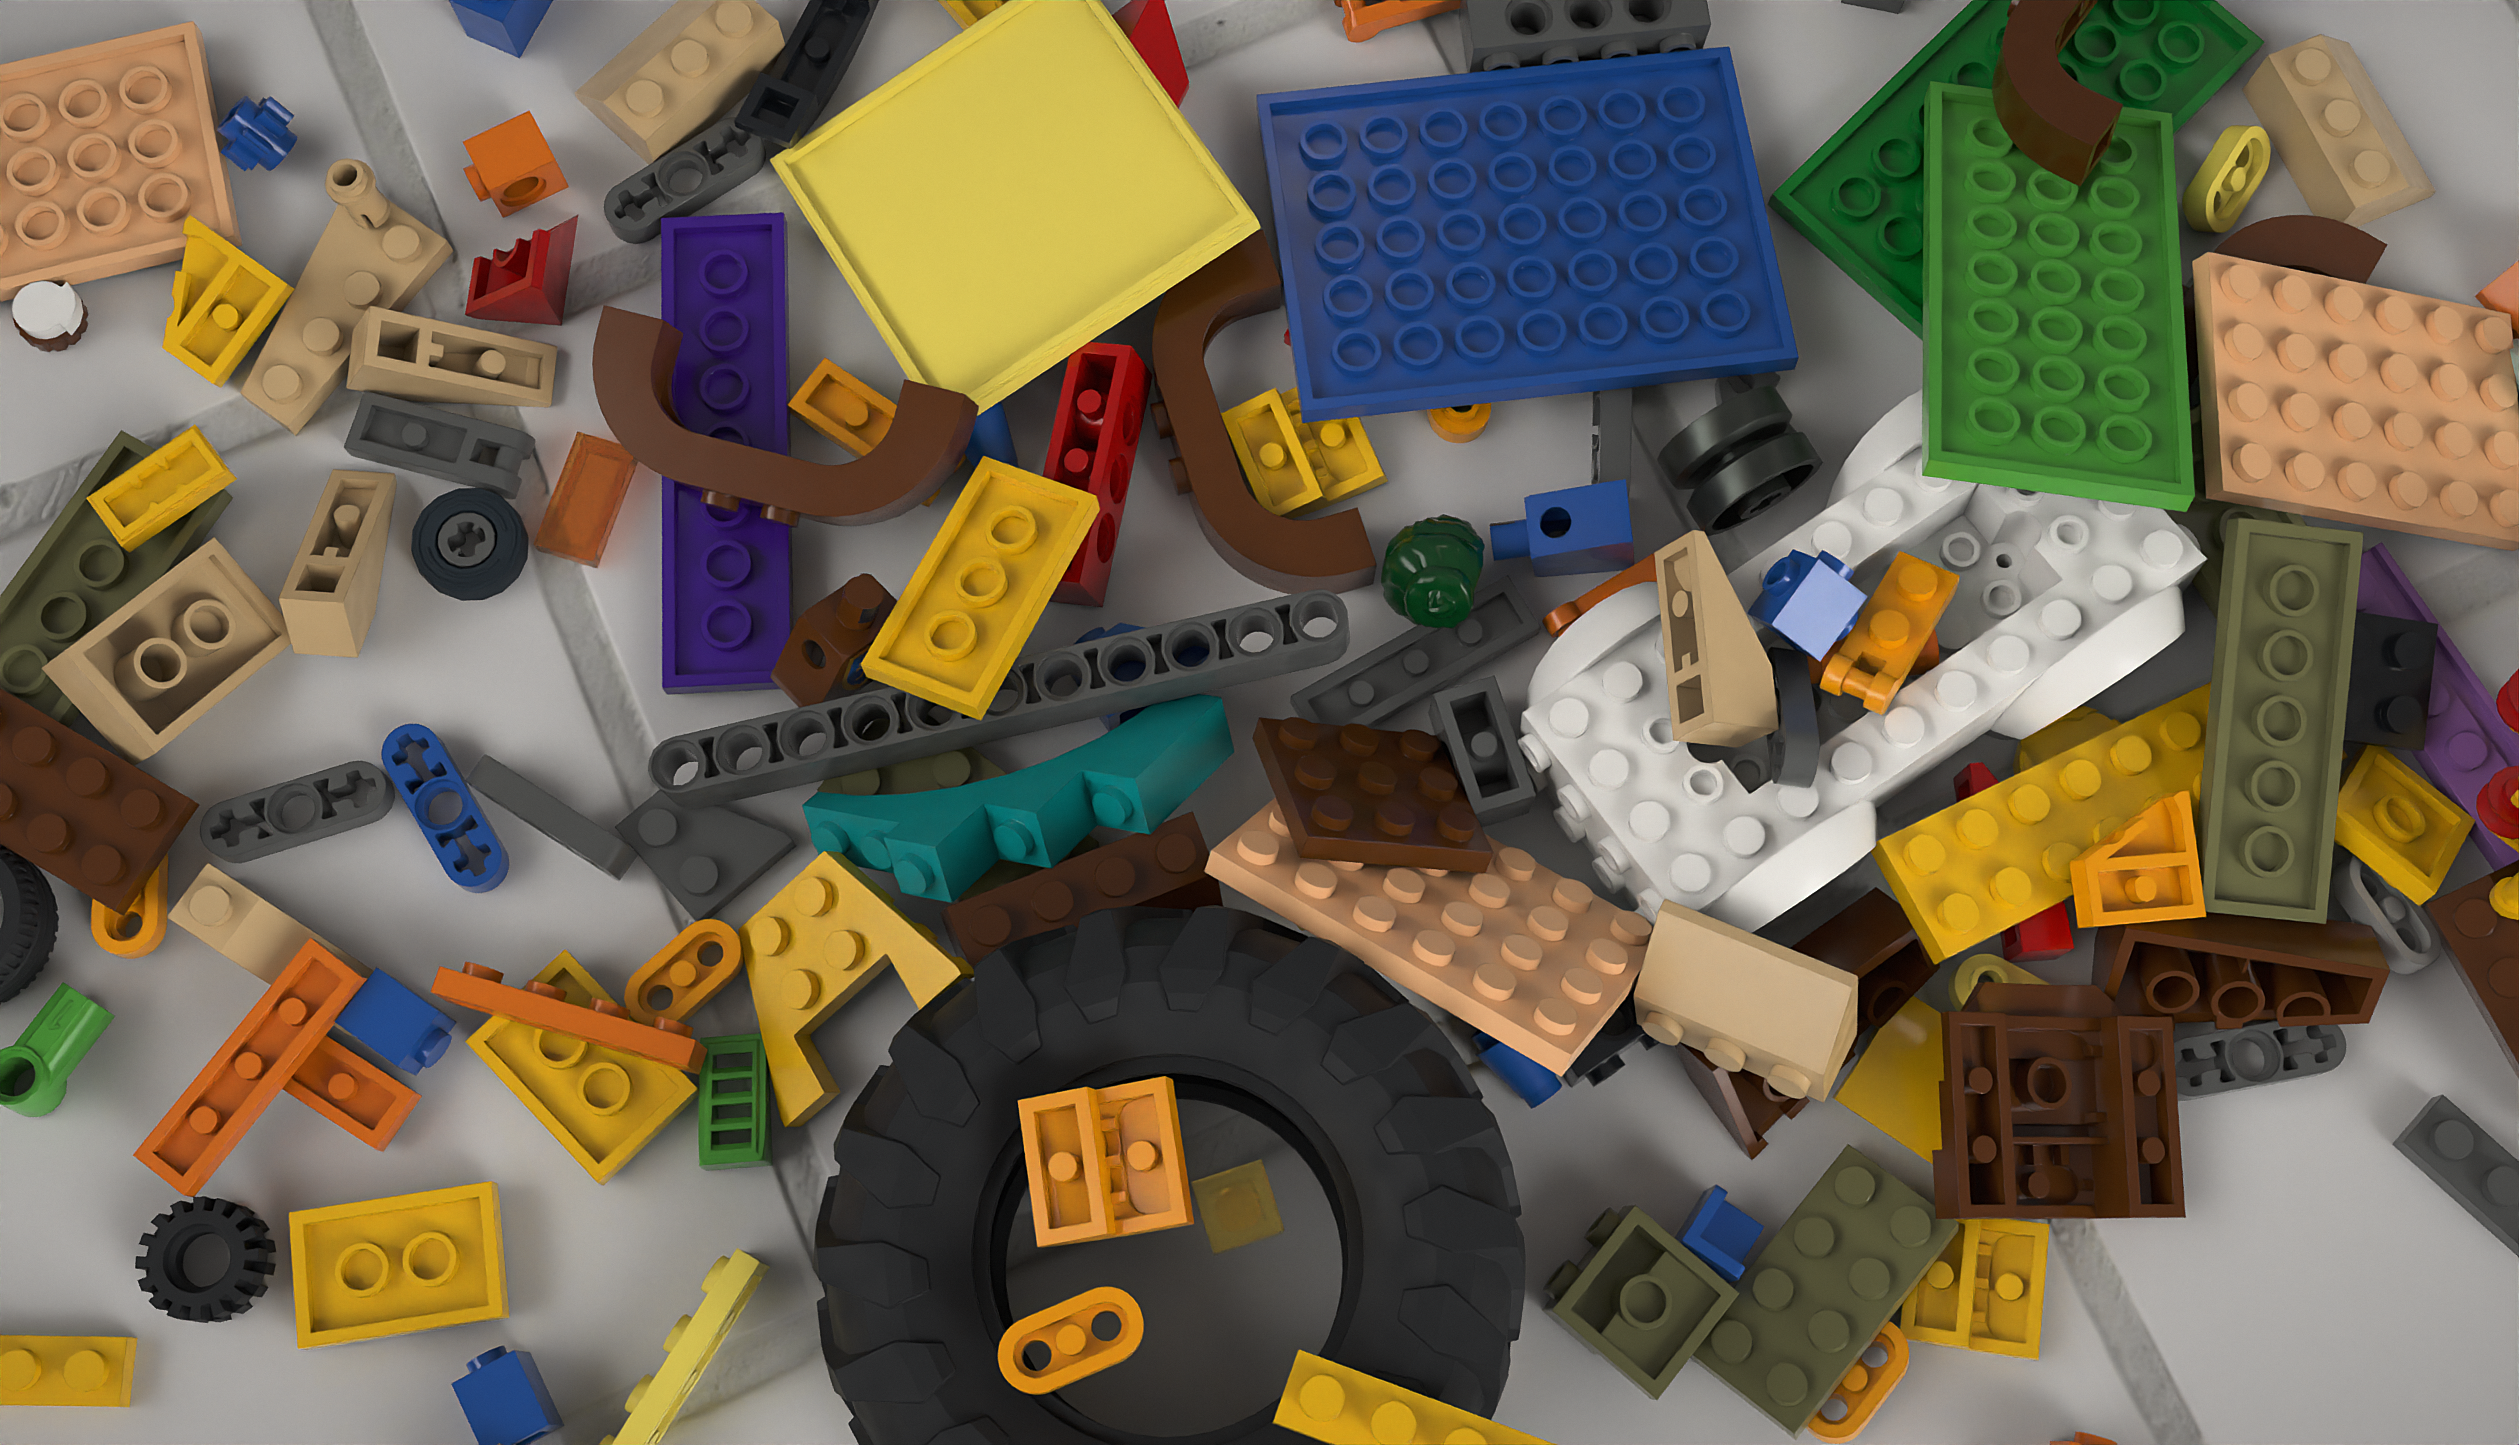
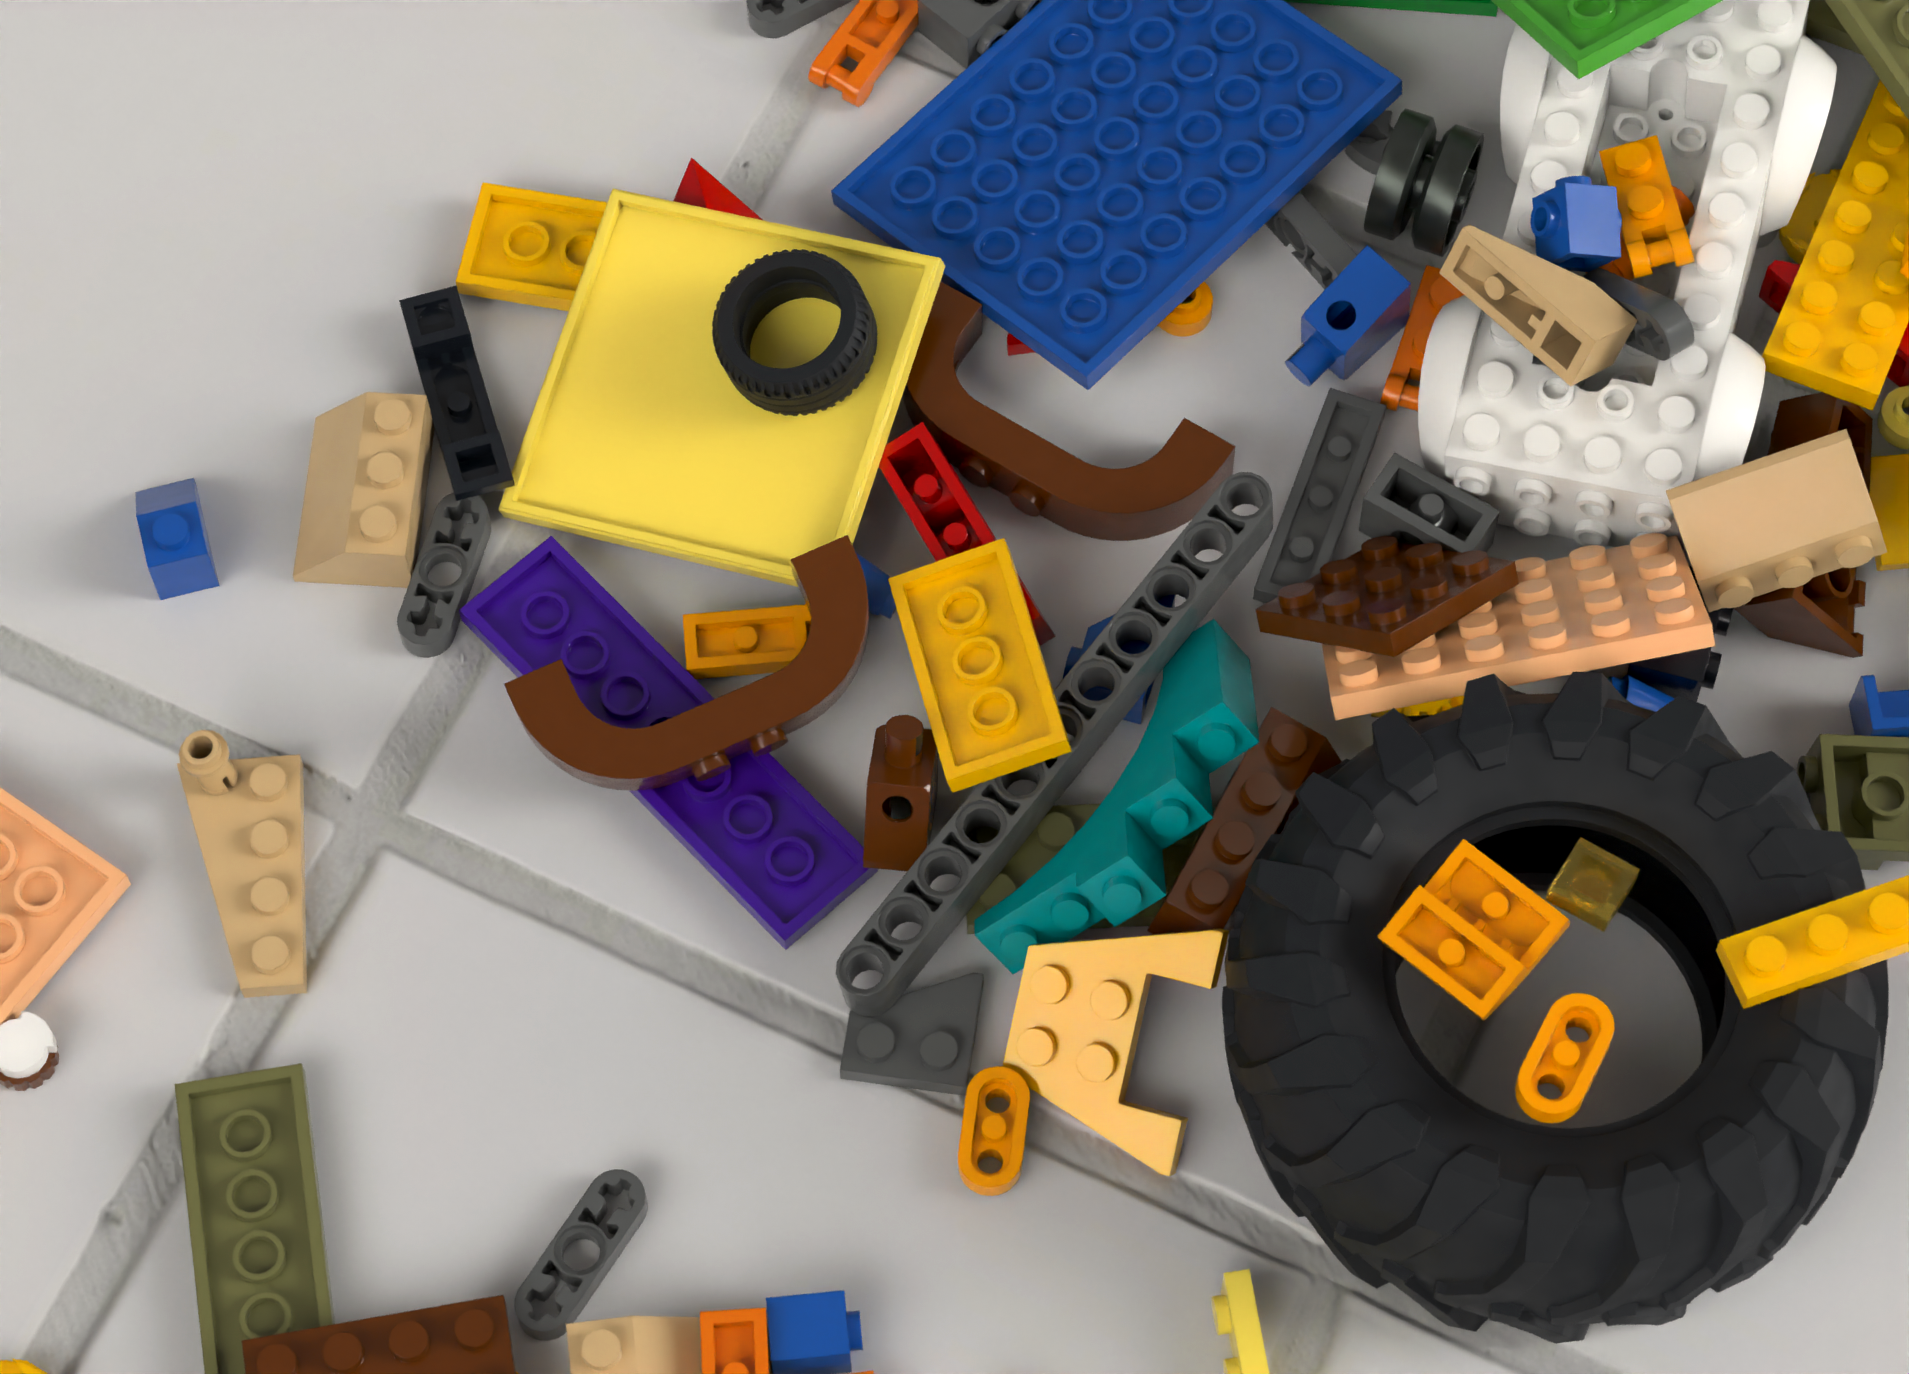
camera: 35 degrees left, 10 degrees down
(161, 488) = (259, 1093): yellow plate -> none
(171, 653) = (380, 1210): tan slope -> none
(219, 304) = (162, 932): yellow wing -> none
(257, 133) = (72, 787): blue gear -> none
(339, 565) = (447, 1047): tan slope -> none
(438, 443) = (437, 905): dark grey plate -> none
(438, 761) = (743, 1161): blue beam -> none
(444, 527) = (522, 929): black bush -> none
(447, 362) = (386, 841): tan slope -> none
(513, 165) = (302, 658): orange brick -> none
(525, 281) = (387, 736): red slope -> none
(545, 1009) = (972, 1203): orange plate -> none
(551, 817) = (786, 1099): dark grey beam -> none
(585, 1095) = (979, 1254): yellow plate -> none
(586, 500) = (590, 859): clear orange tile -> none
(737, 1155) = (1132, 1237): bright green slope -> none
(1061, 141) = (770, 284): none -> black tyre
(1296, 463) = (1104, 424): yellow slope -> none
(1433, 571) = (1280, 421): dark green hair -> none

